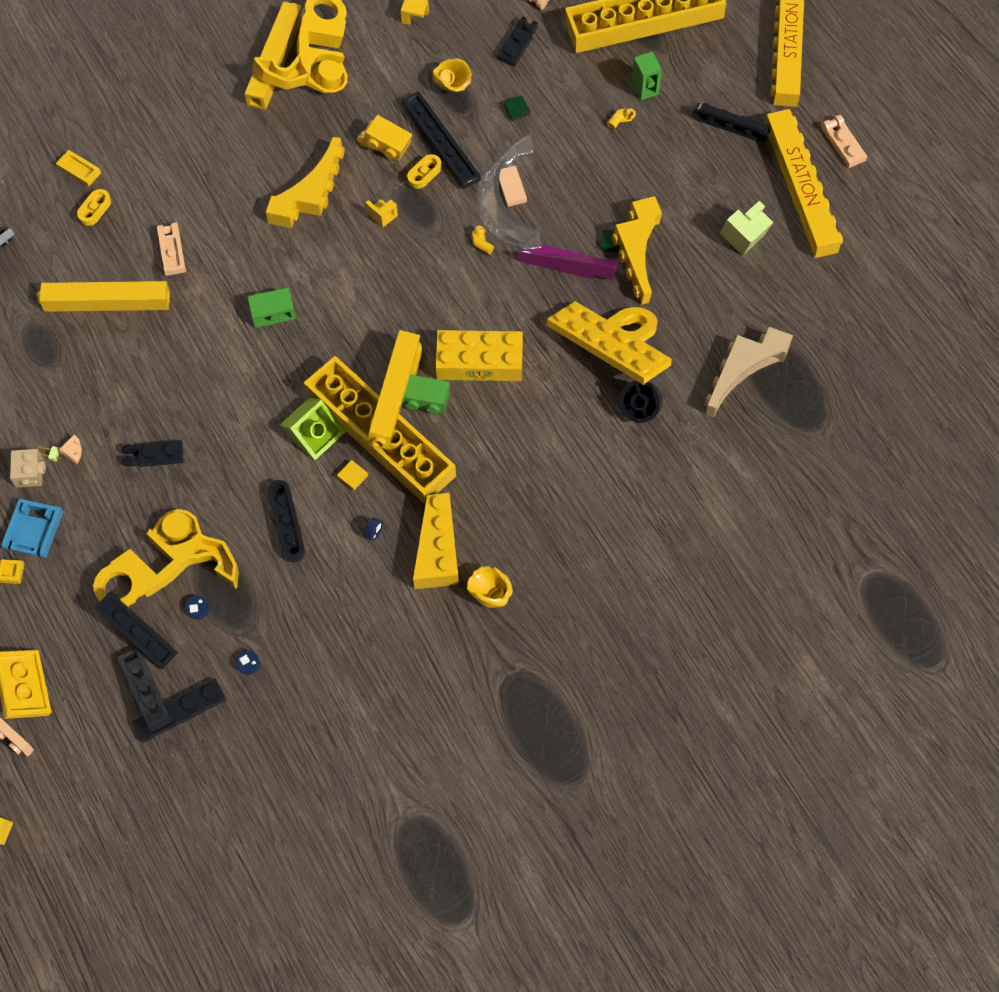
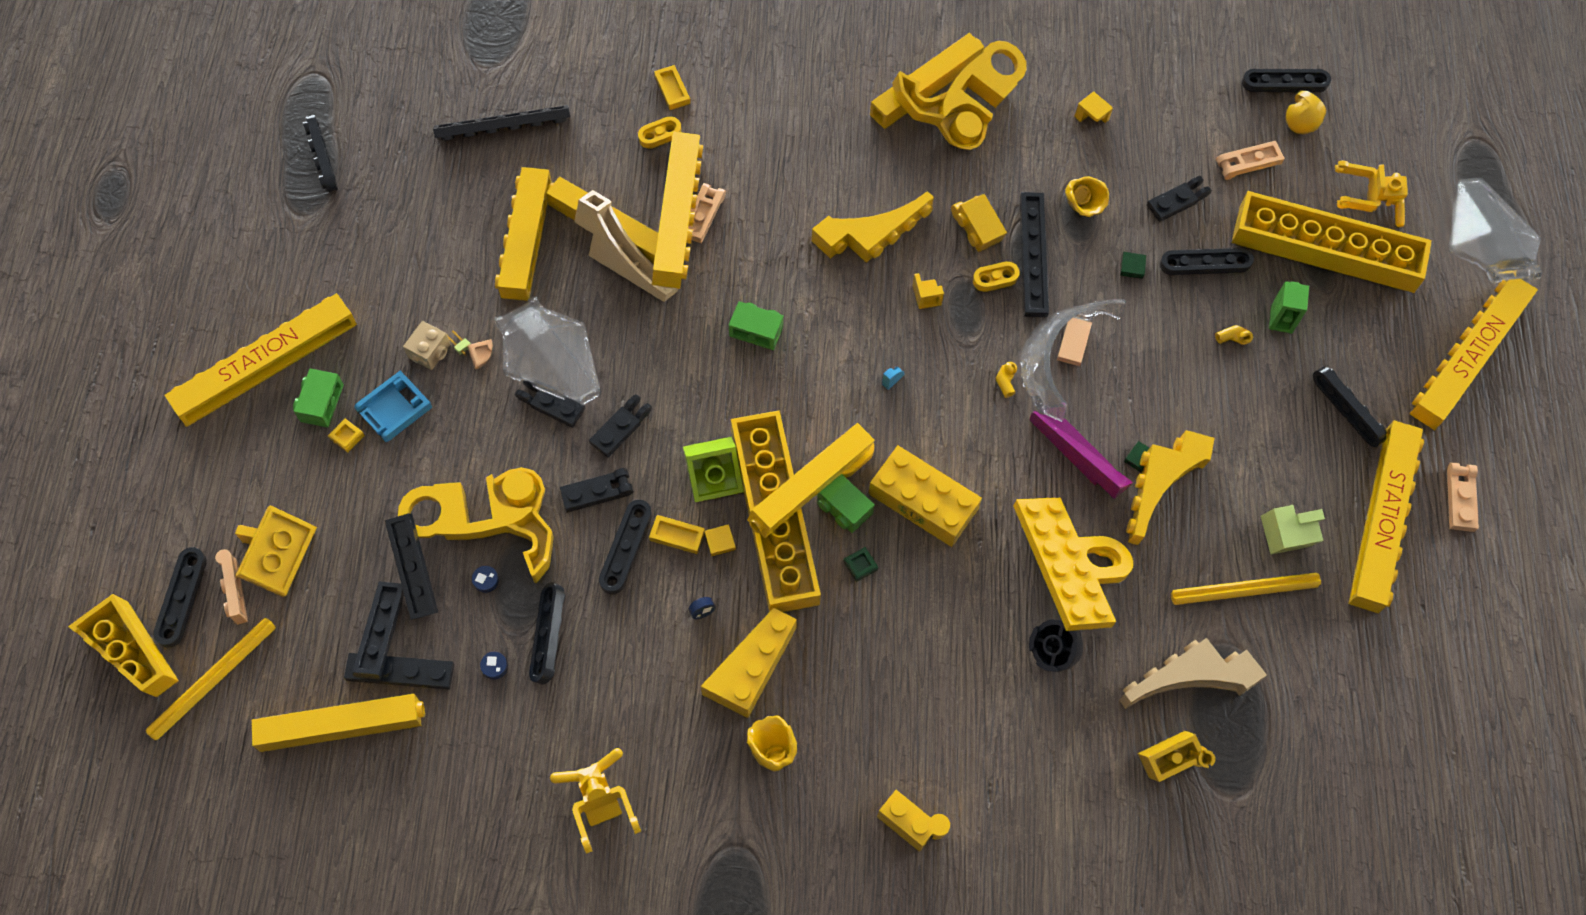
camera: 30 degrees right, 0 degrees up
(37, 806) = (210, 679): none -> yellow axle
(42, 341) = (524, 234): none -> yellow brick
(125, 312) = (613, 245): none -> tan arch
(127, 417) = (548, 352): none -> clear windscreen
(153, 256) = (676, 209): none -> yellow brick
(160, 773) = (337, 722): none -> yellow brick
(219, 440) = (619, 427): none -> black hinge
(235, 496) = (596, 490): none -> black plate
(272, 615) = (547, 633): none -> black plate
(318, 490) = (677, 534): none -> yellow tile
(393, 702) = (598, 800): none -> yellow piece
(397, 287) = (892, 376): none -> dark azure tile
(465, 431) = (860, 564): none -> dark green tile
(567, 75) = (1206, 261): none -> black plate
(621, 579) = (911, 821): none -> yellow hinge
(740, 288) = (1245, 588): none -> yellow axle
(767, 426) = (1175, 756): none -> yellow hinge

